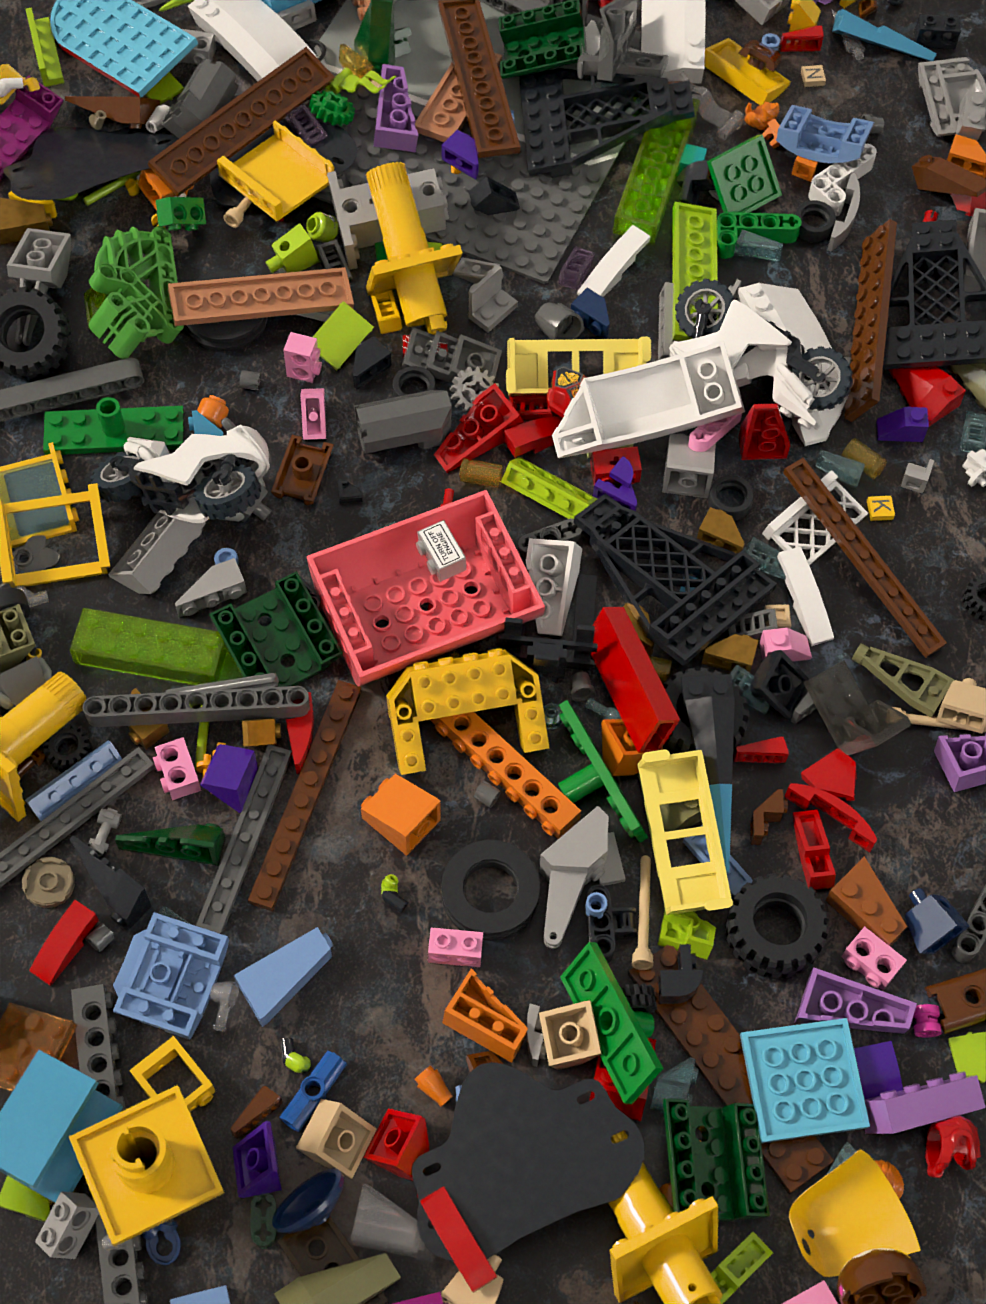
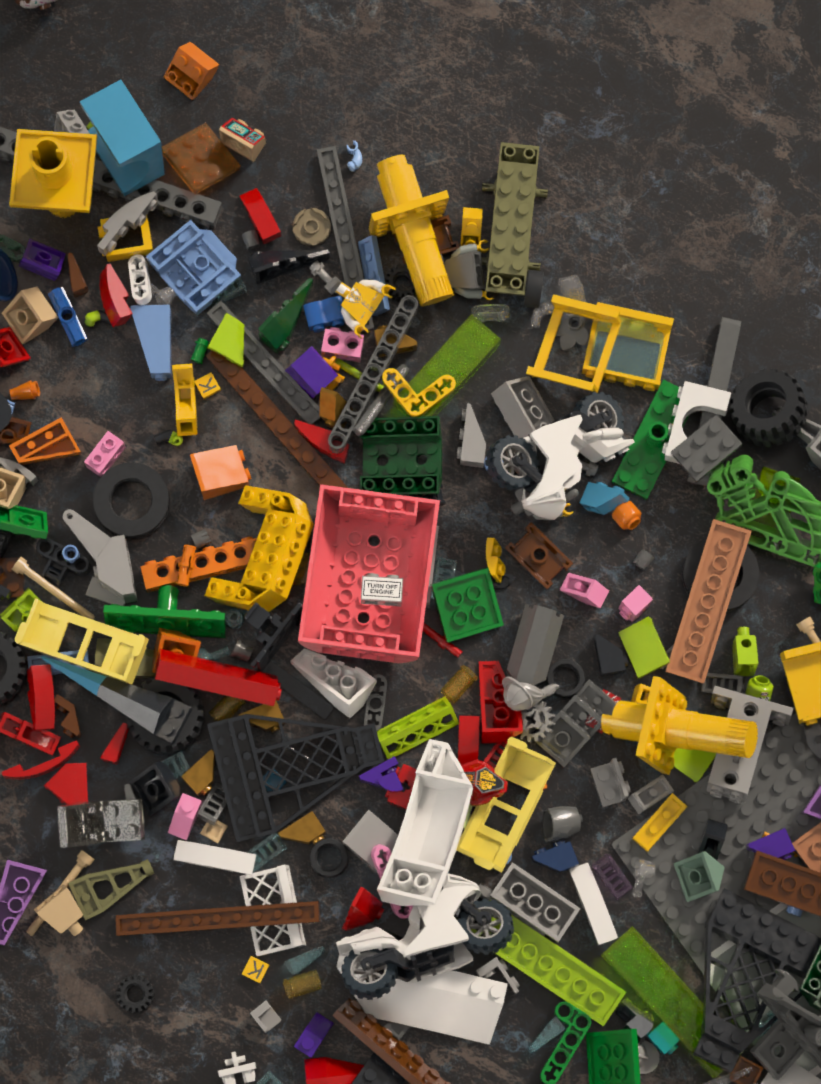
camera: 120 degrees right, 15 degrees up
(55, 642) = (490, 312): none -> clear plate
(57, 404) = (692, 399): none -> white arch
(103, 356) = (706, 448): none -> dark grey plate
(117, 762) = (361, 302): none -> torso
(146, 1079) = (132, 215): none -> light grey slope
(149, 806) = (324, 314): none -> blue brick
(202, 650) = (414, 398): none -> yellow beam
(210, 1050) = (145, 284): none -> white beam
(239, 885) = (229, 340): none -> lime slope
(258, 1049) = (114, 297): none -> red slope
(269, 917) = (200, 350): none -> green pin
(306, 888) = (207, 385): none -> yellow tile
(339, 495) = (494, 563): none -> yellow slope
(343, 895) = (185, 399): none -> yellow arch
(394, 497) = (467, 604): none -> green plate
(463, 397) = (524, 695): none -> light grey piece
(501, 249) = (659, 822): none -> yellow tile
(530, 780) = (186, 565): none -> orange pin
(532, 191) = (699, 875): none -> sand green slope
(557, 239) = (643, 870): none -> clear bar
(650, 301) = (535, 902): none -> light grey slope
(768, 849) = (41, 697): none -> red slope

